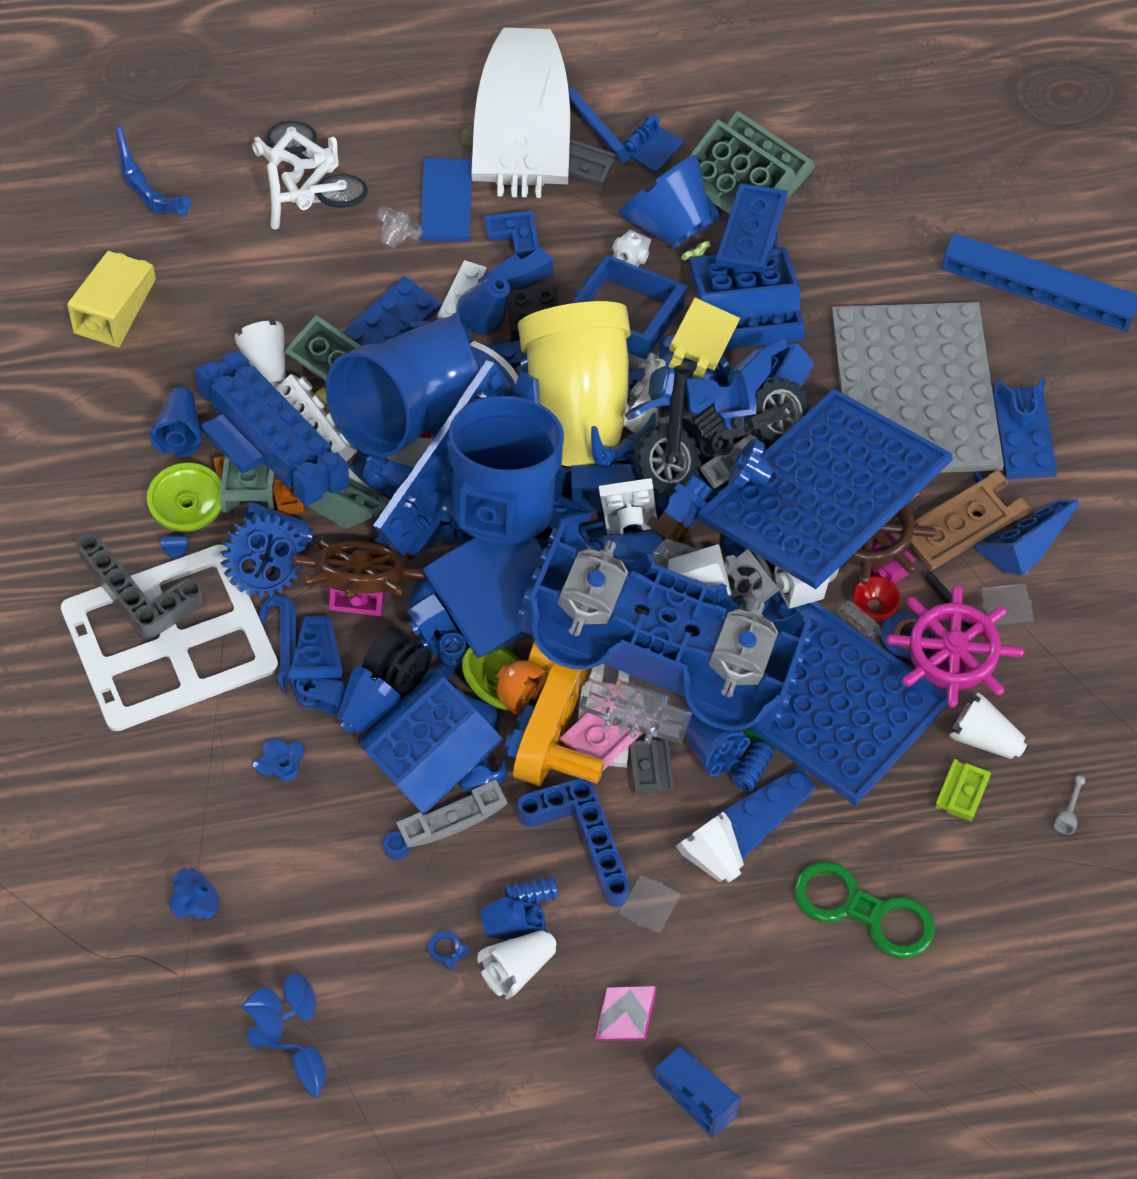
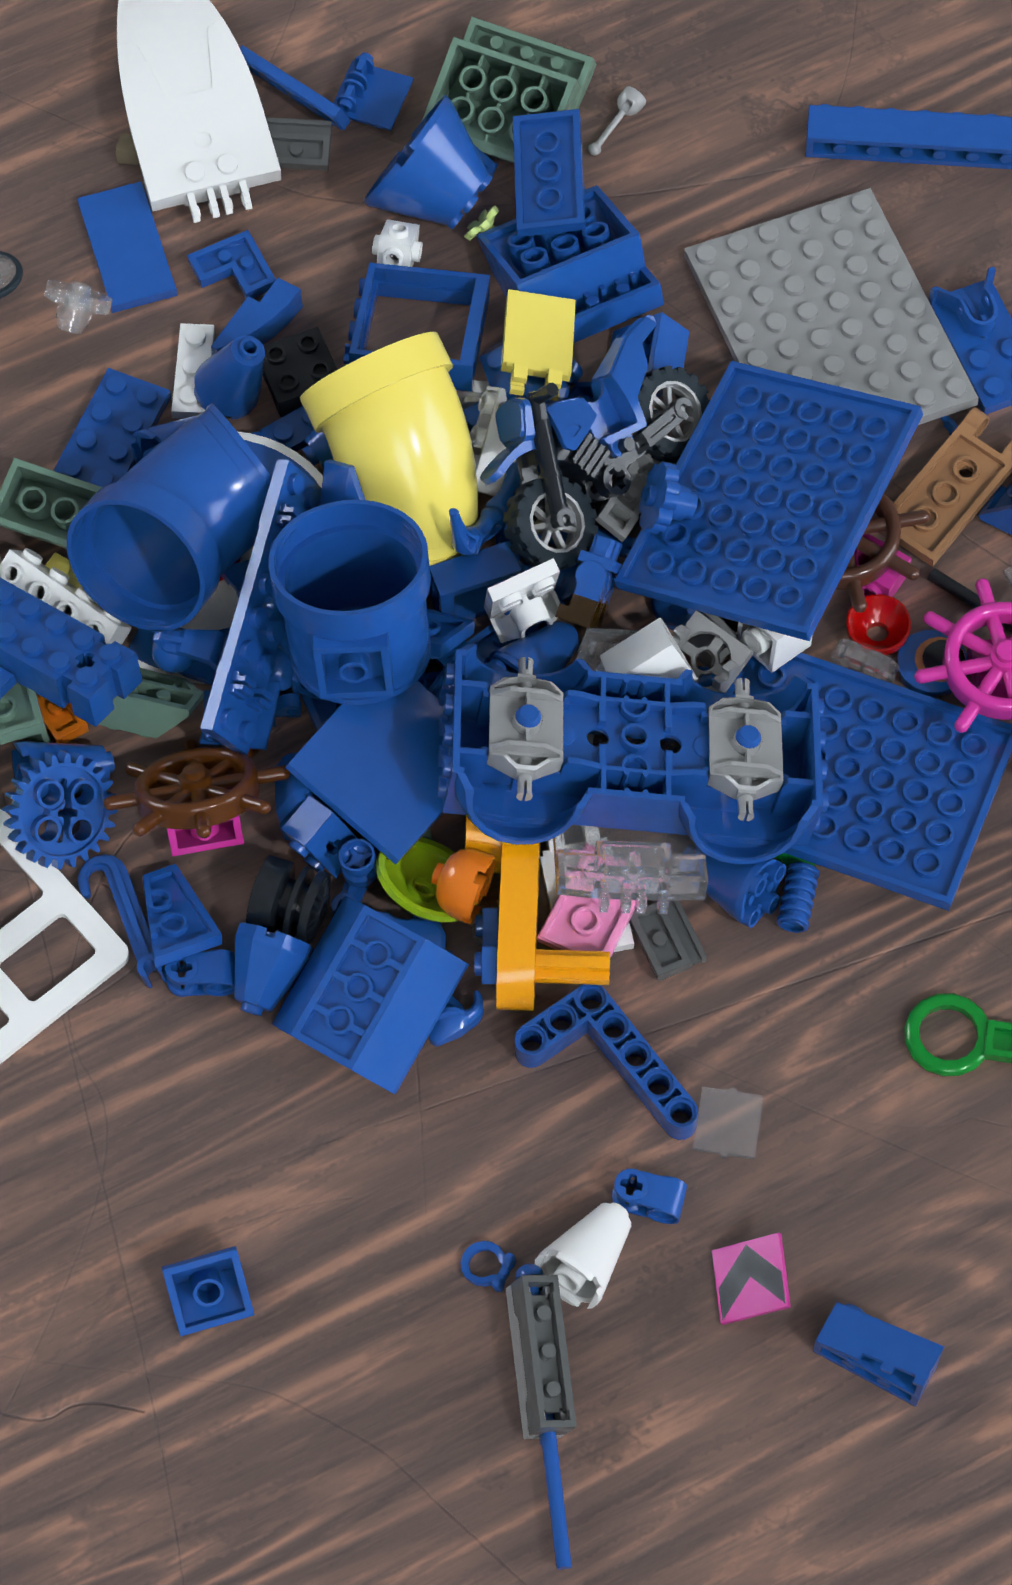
camera: 15 degrees left, 5 degrees up
(193, 895) = (131, 1301): blue plant -> none
(248, 905) = (208, 1291): none -> blue slope
(265, 1009) = (300, 1447): blue plant -> none
(280, 759) = (174, 1075): blue plate -> none
(395, 846) = (372, 1146): blue tile -> none
(454, 817) = (434, 1085): light grey slope -> none
(455, 1039) = (543, 1382): none -> dark grey piece
(512, 919) = (560, 1199): blue slope -> none
(533, 891) = (571, 1155): blue piece -> none
(577, 937) = (653, 1197): none -> blue piece
(714, 849) = (788, 1024): white cone -> none
(767, 808) = (824, 961): blue wing -> none
(829, 198) = (629, 104): none -> light grey hinge

